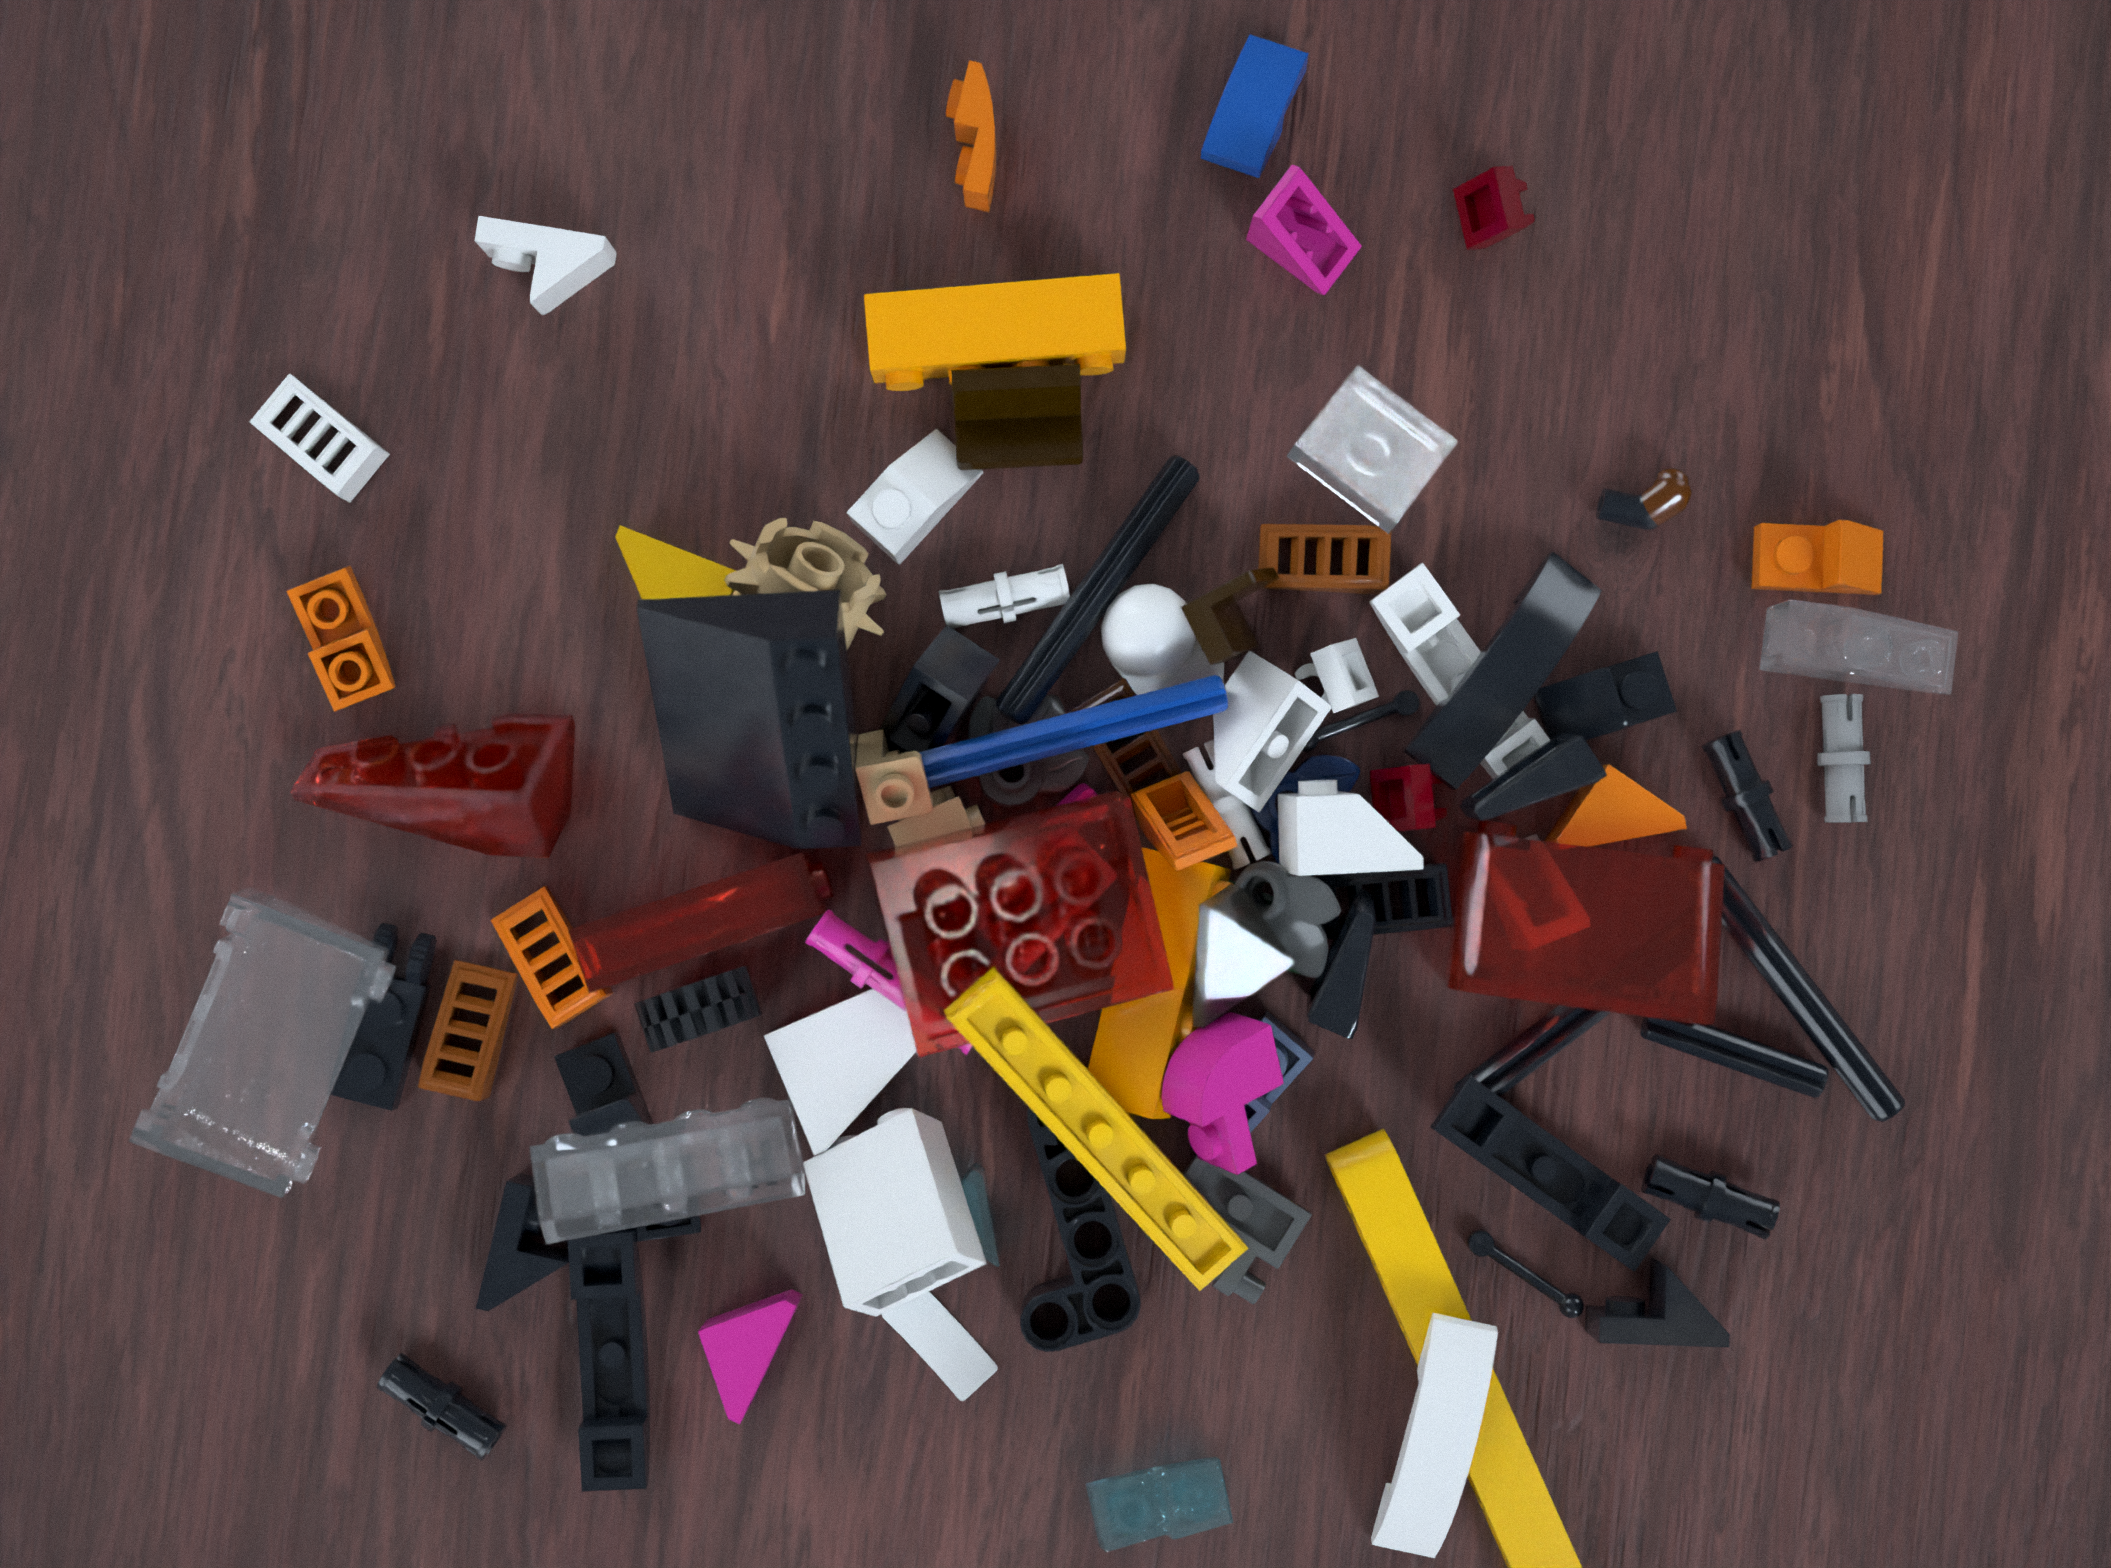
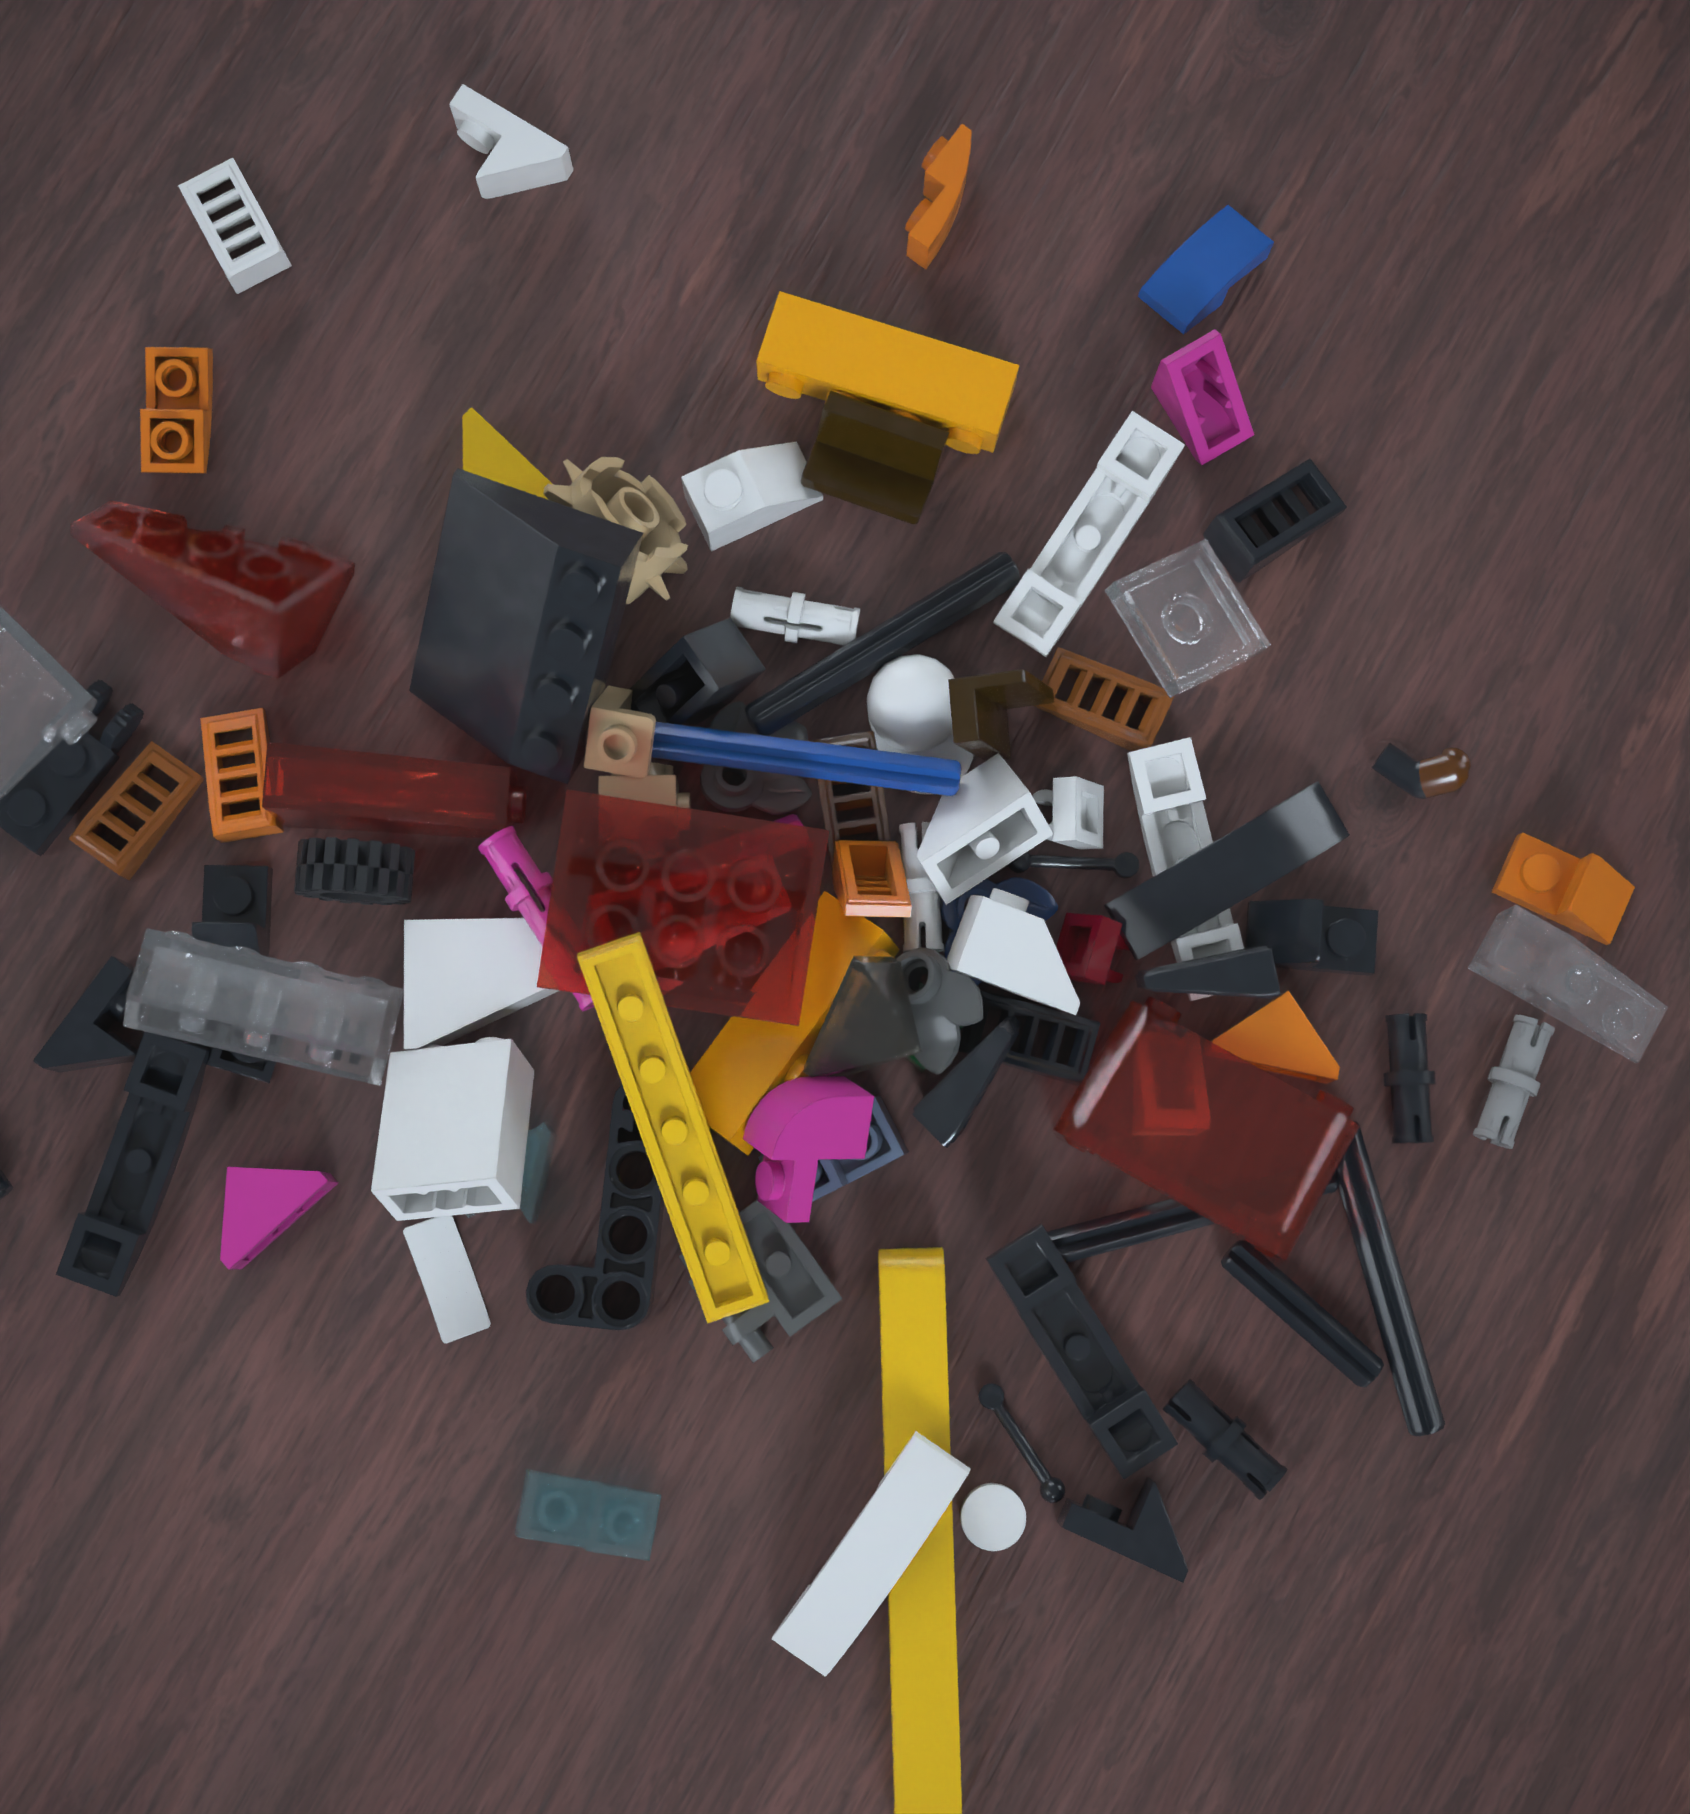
camera: 20 degrees right, 5 degrees down
(1248, 406) = (1089, 534): none -> white slope
(1391, 354) = (1241, 542): none -> black slope
(1491, 207) = (1386, 446): dark red tile -> none
(1527, 1352) = (993, 1516): none -> white tile

